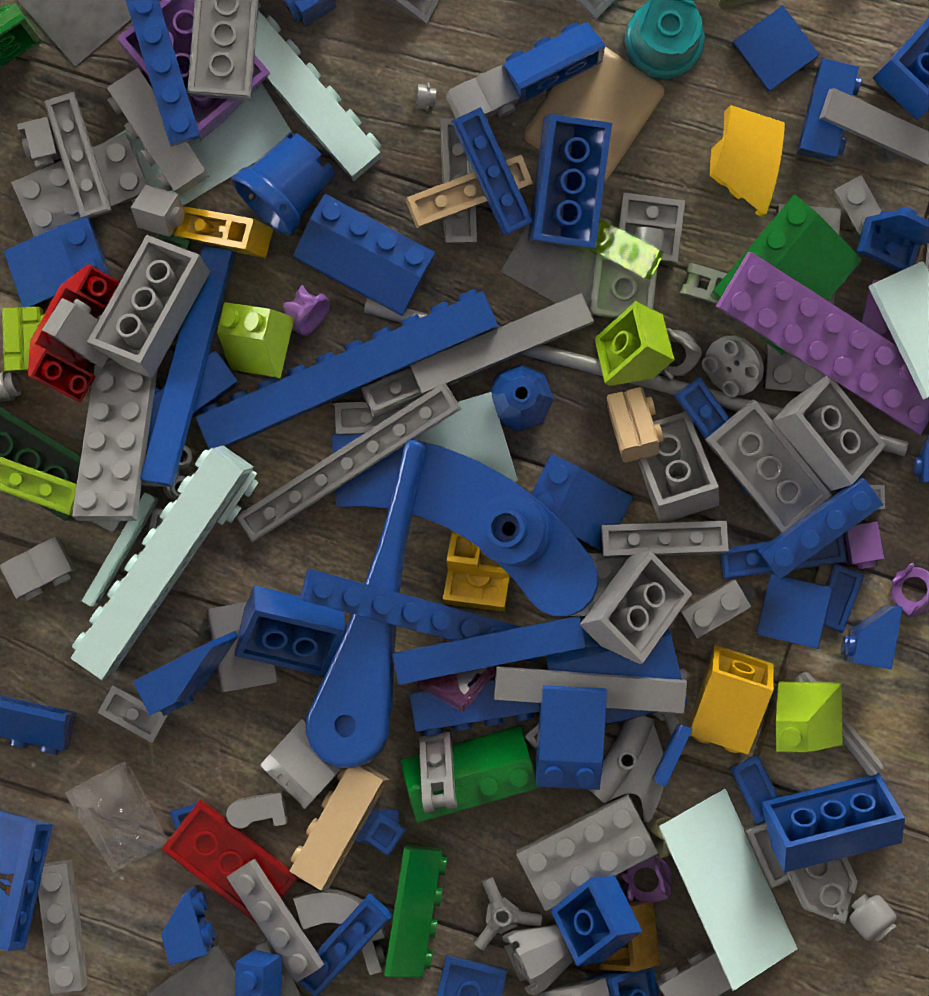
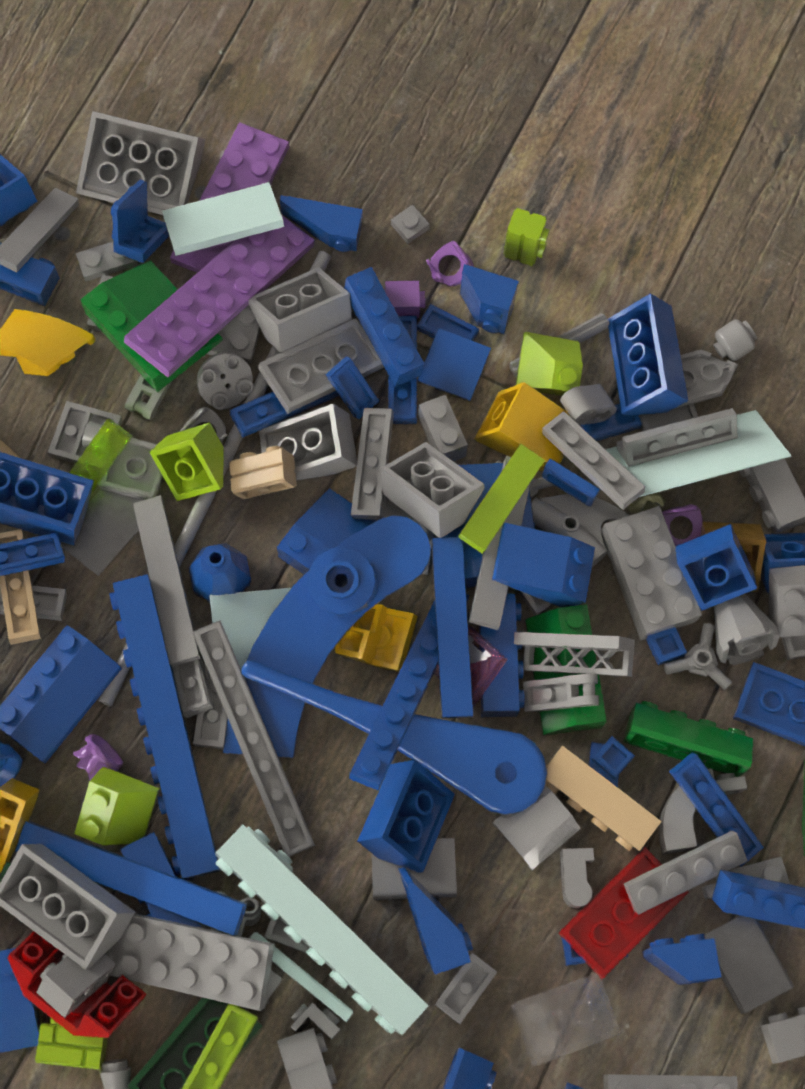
camera: 85 degrees left, 15 degrees down
(82, 577) = (324, 1020): none -> light grey bracket
(485, 784) = (584, 644): none -> light grey fence
(511, 877) = (666, 646): none -> blue plate
(635, 683) = (501, 498): none -> lime tile
(695, 776) = (593, 460): none -> light grey plate
(744, 866) = (678, 437): none -> light grey fence
(747, 504) = (352, 387): none -> blue tile
(765, 763) = (588, 404): none -> light grey beam

